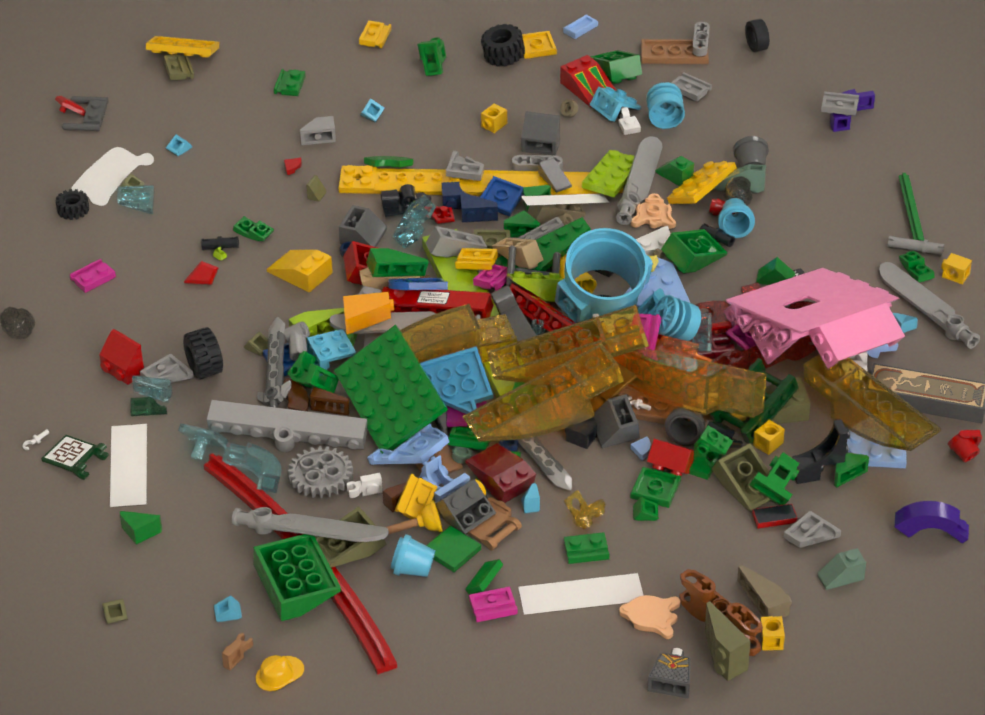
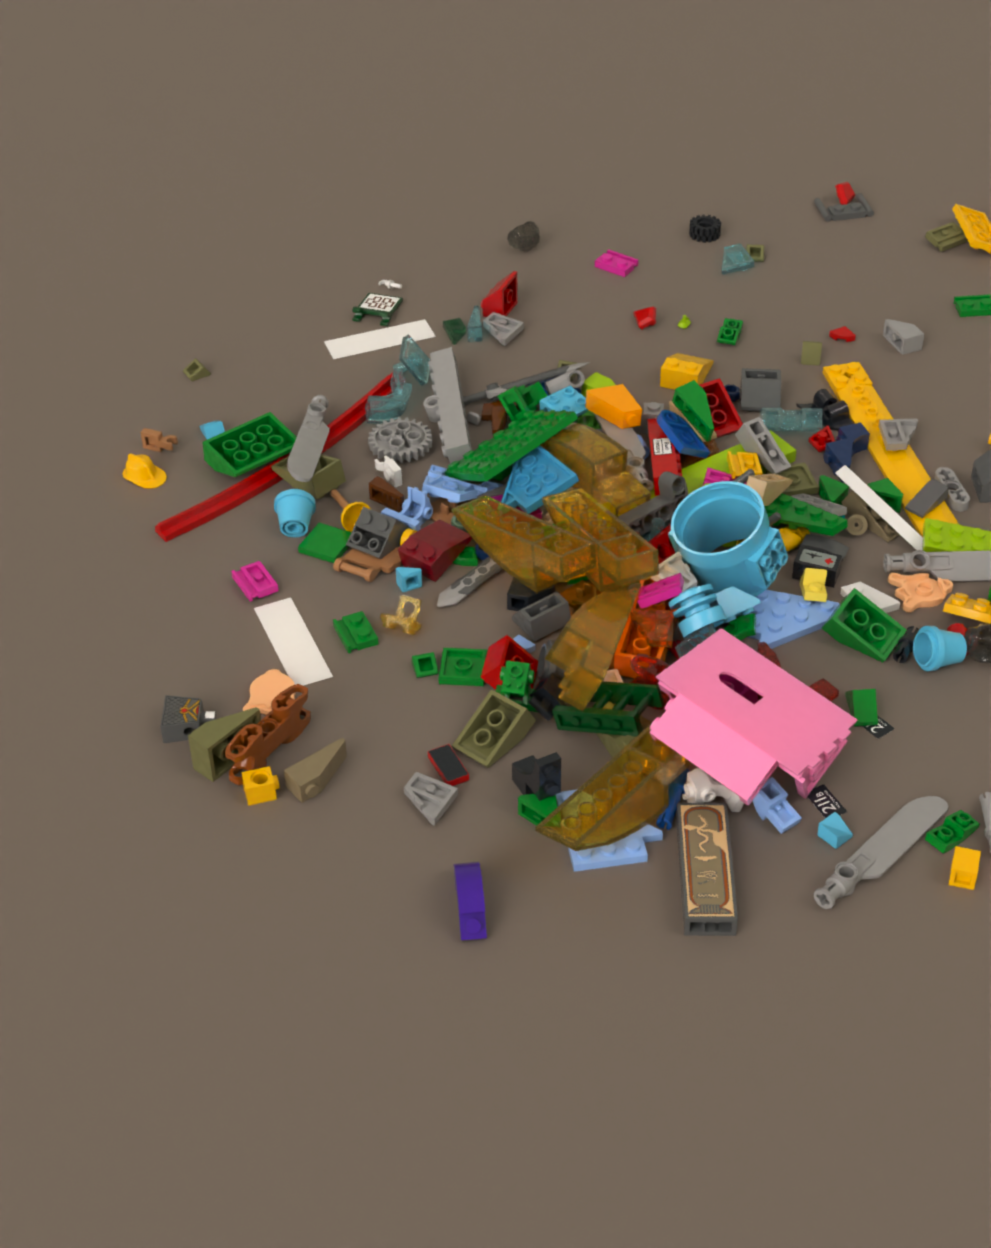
camera: 75 degrees right, 0 degrees up
(108, 173) = (771, 239): white sticker -> none
(140, 525) = (294, 357): green slope -> none
(178, 145) = (831, 265): medium azure slope -> none
(203, 353) = (520, 332): black tyre -> none
(214, 243) = (696, 317): black pin -> none
(372, 110) = (963, 362): medium azure slope -> none
(393, 161) = (885, 388): green tile -> none
(415, 496) = (378, 496): yellow plate -> none
(484, 576) = (289, 567): green tile -> none
(504, 193) = (876, 468): blue tile -> none
(768, 437) = (569, 738): yellow brick -> none
(782, 470) = (505, 753): green tile -> none
(843, 569) = (374, 833): sand green slope -> none
(966, 444) = (618, 912): red piece -> none

